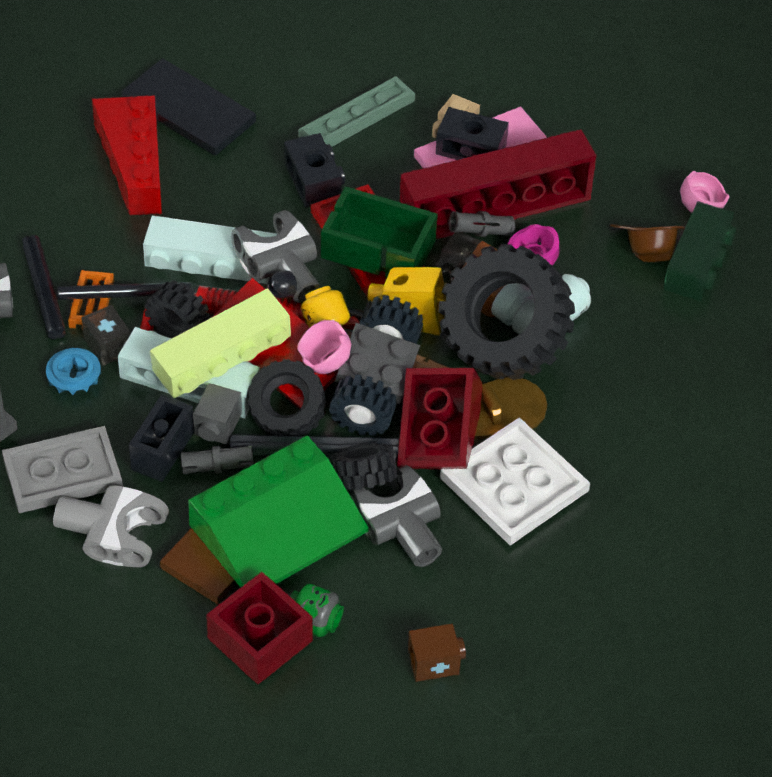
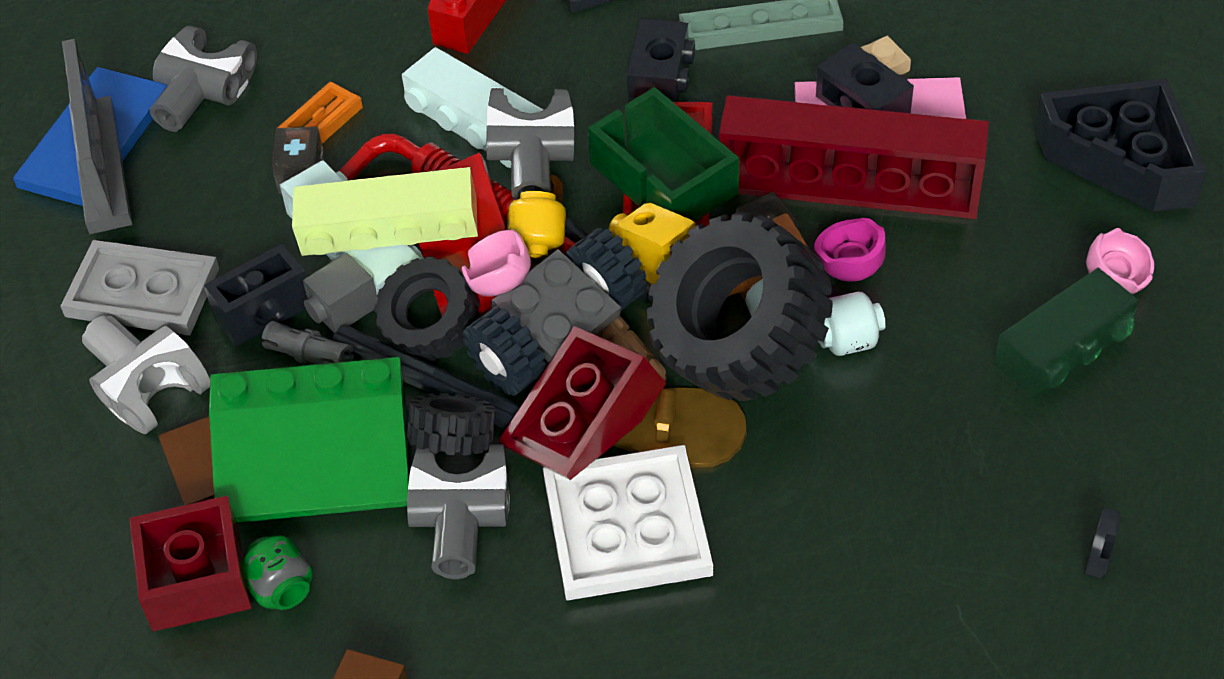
camera: 35 degrees right, 0 degrees up
(44, 287) = (280, 86): black axle -> none
(61, 364) = (236, 174): dark azure gear -> none
(109, 291) = (346, 116): black bar -> none
(175, 309) = (377, 152): black tyre -> none
(282, 284) = (501, 172): black hinge -> none
(498, 224) = (780, 183): dark grey pin -> none
(652, 243) = (1007, 295): reddish brown piece -> none
(657, 112) = (1124, 141): none -> black brick

